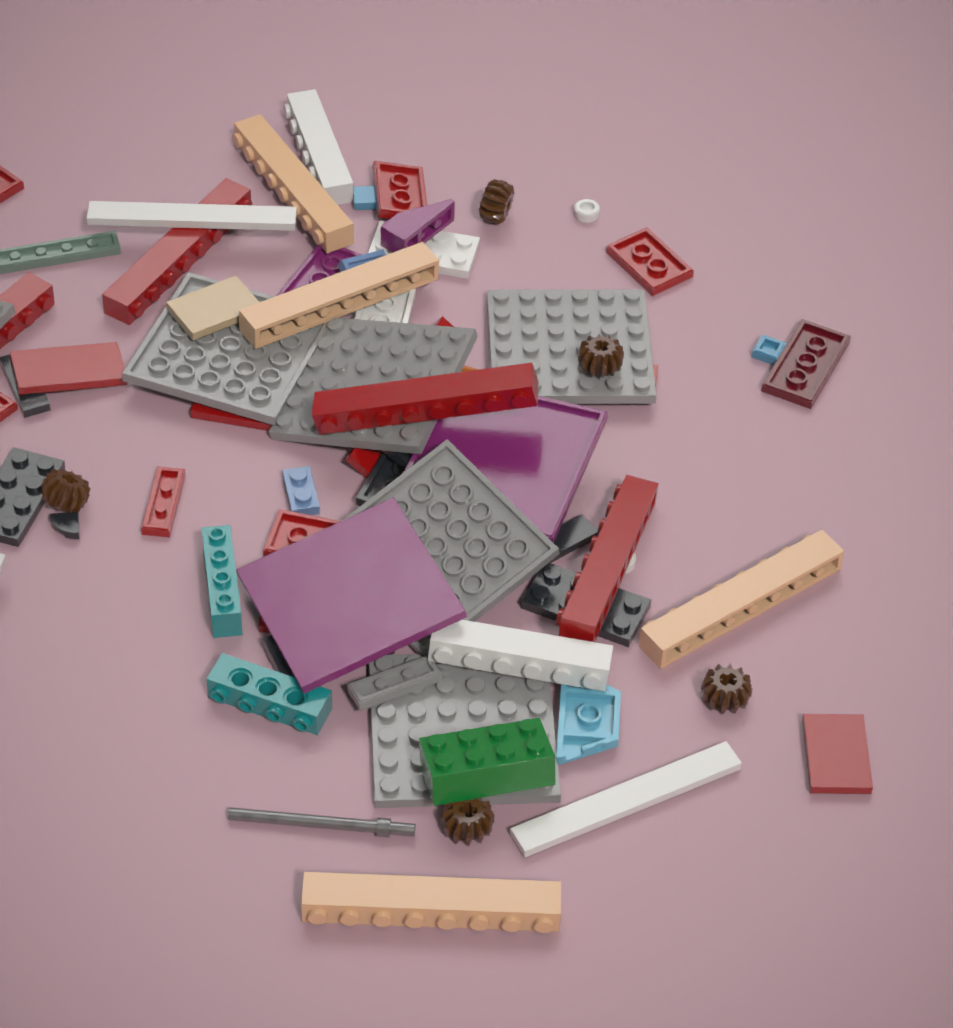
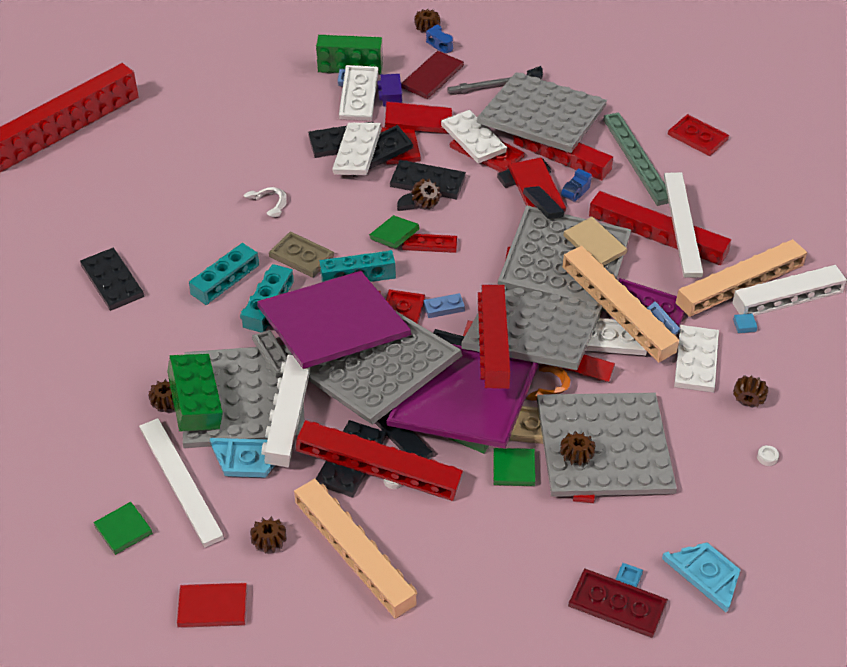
camera: 90 degrees right, 0 degrees up
(11, 721) = (276, 211): none -> white helmet
(72, 324) = (577, 185): none -> blue leg
(121, 352) = (543, 202): none -> black tile
(140, 536) = (394, 231): none -> green tile
(165, 658) = (300, 254): none -> dark tan tile
(188, 916) = (112, 279): none -> black plate
(205, 752) = (224, 273): none -> teal brick
(382, 827) = (164, 358): flat silver bar -> none
(398, 188) = (754, 339): tile -> none
(416, 225) = (702, 341): slope -> none
(431, 902) = (103, 383): light nougat brick -> none
(615, 440) = (514, 467): none -> green tile
(649, 261) = (717, 497): red tile -> none
(713, 864) = (123, 528): none -> green tile
(763, 281) = (707, 572): none -> medium azure wing

